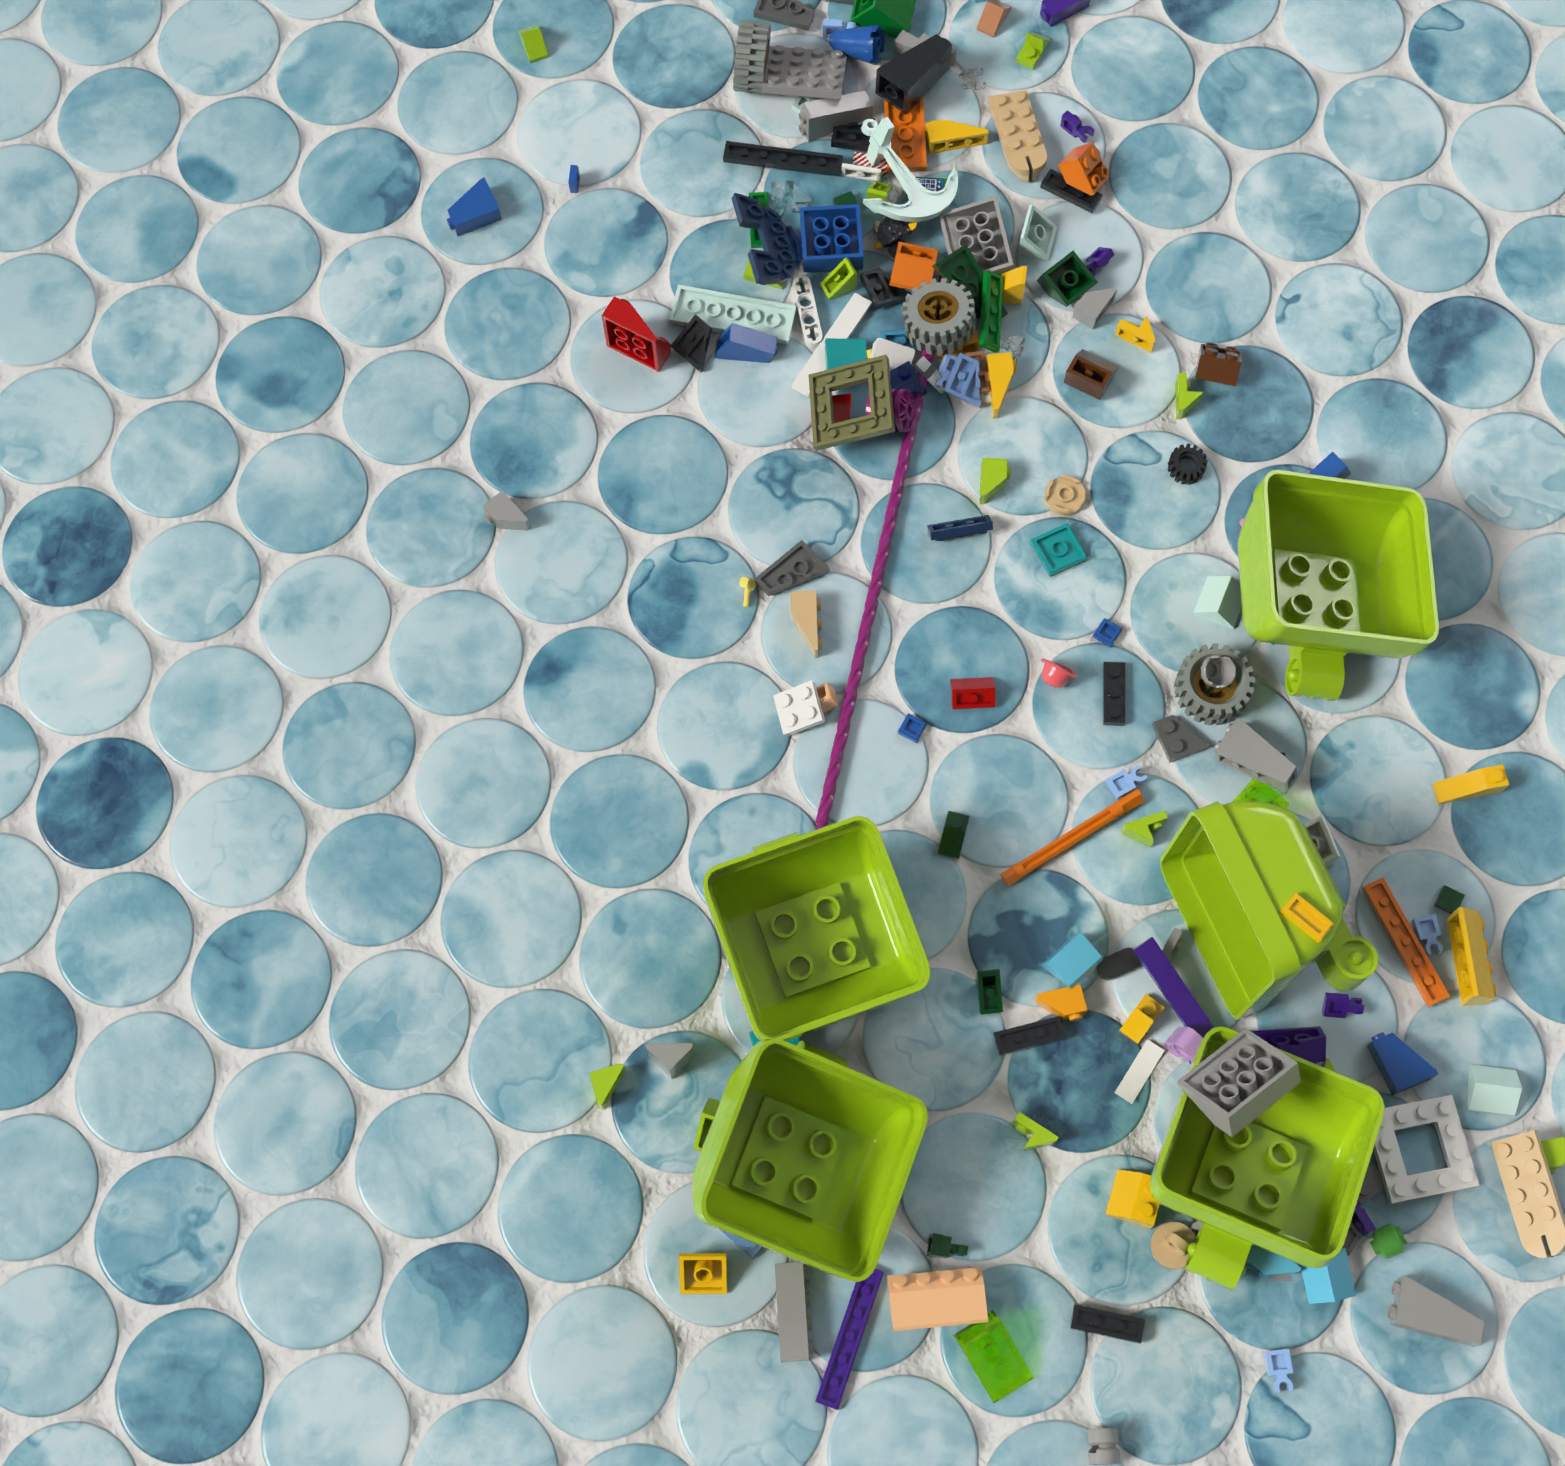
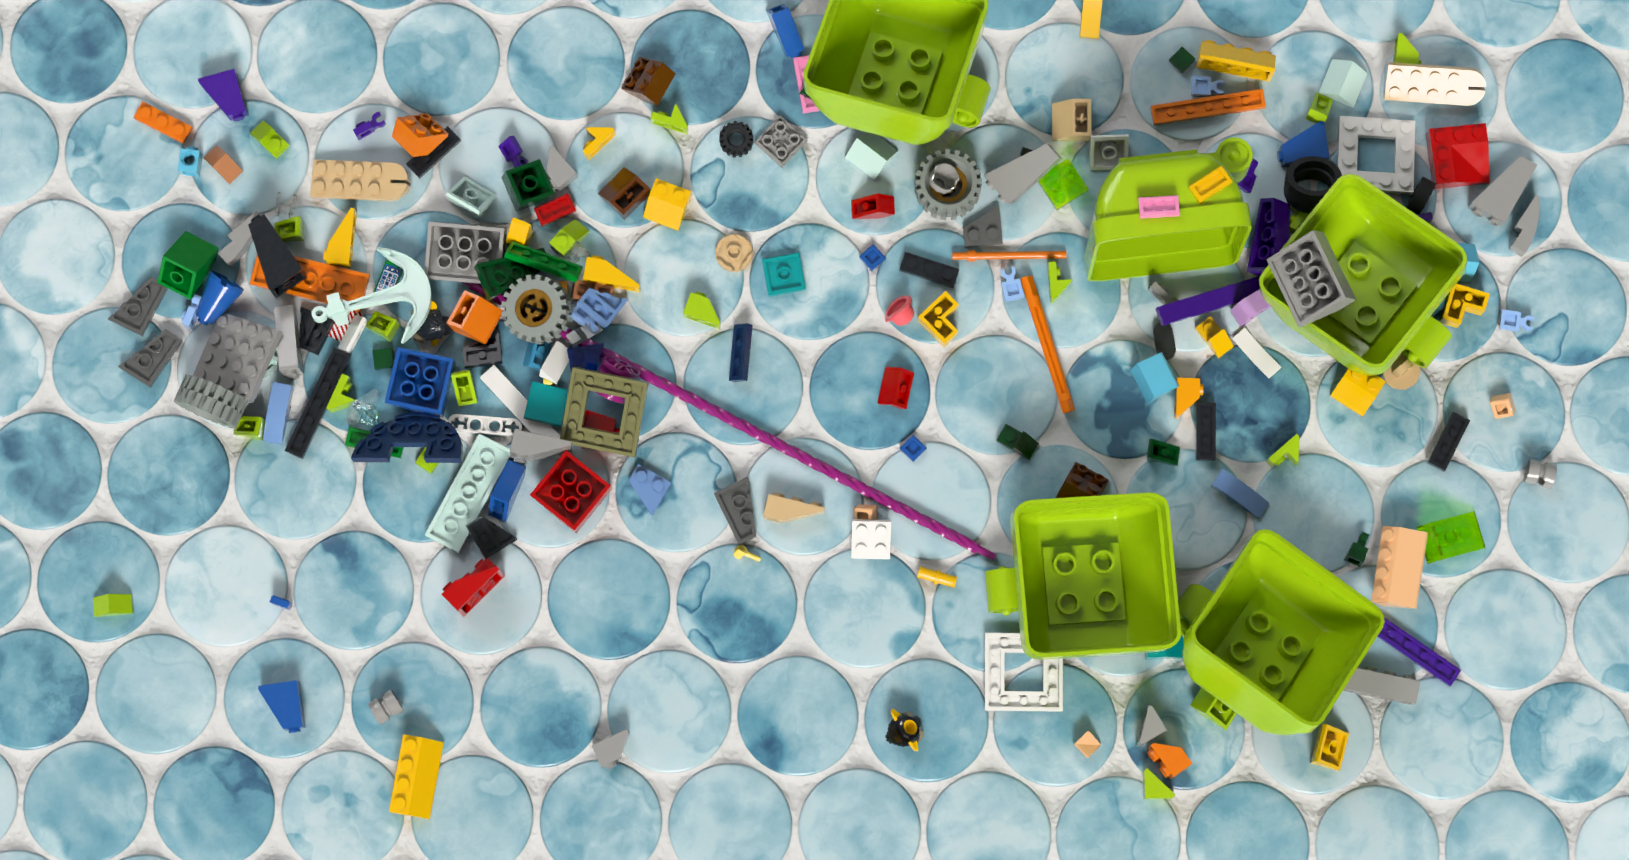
camera: 75 degrees left, 10 degrees up
(431, 342) = (416, 776): none -> yellow slope
(494, 295) = (385, 706): none -> light grey wheel
(599, 796) = (905, 730): none -> black hair
(635, 996) = (1087, 744): none -> light nougat slope
(639, 1090) = (1170, 758): none -> orange slope
(660, 889) = (999, 700): none -> white plate
(740, 110) = (250, 427): none -> lime slope
(761, 403) = (571, 491): none -> red slope
(762, 126) = (278, 412): none -> medium blue slope
(777, 787) = (936, 577): none -> yellow pin
(789, 479) = (649, 487): none -> medium blue wing
(794, 352) = (532, 446): none -> light grey slope
(798, 173) = (338, 399): none -> lime slope
(928, 913) = (1082, 483): none -> reddish brown slope
(949, 90) = (290, 229): none -> lime slope
(969, 1092) = (1239, 493): none -> medium blue slope
(1034, 336) = (567, 236): none -> lime slope
(1051, 314) = (554, 209): none -> red plate
(1064, 710) = (935, 319): none -> yellow brick
(1094, 416) = (667, 204): none -> yellow slope
(1145, 733) = (971, 255): none -> orange bar
(1163, 617) = (873, 207): none -> red slope
(1172, 1380) = (1502, 405): none -> light nougat slope
(1201, 509) = (781, 141): none -> light grey tile
(1259, 864) = (1158, 206): none -> bright pink plate
(1282, 1292) = (1462, 300): none -> yellow brick
(1335, 796) = (1071, 120): none -> tan slope
(1370, 1063) = (1305, 169): none -> black tyre
(1388, 1241) = (1440, 205): bright green head -> none
(1391, 1212) = (1421, 195): none -> black tyre
(1398, 1353) = (1526, 227): none -> light grey slope
(1451, 1068) = (1319, 108): none -> lime slope
(1456, 1248) = (1458, 155): none -> red slope

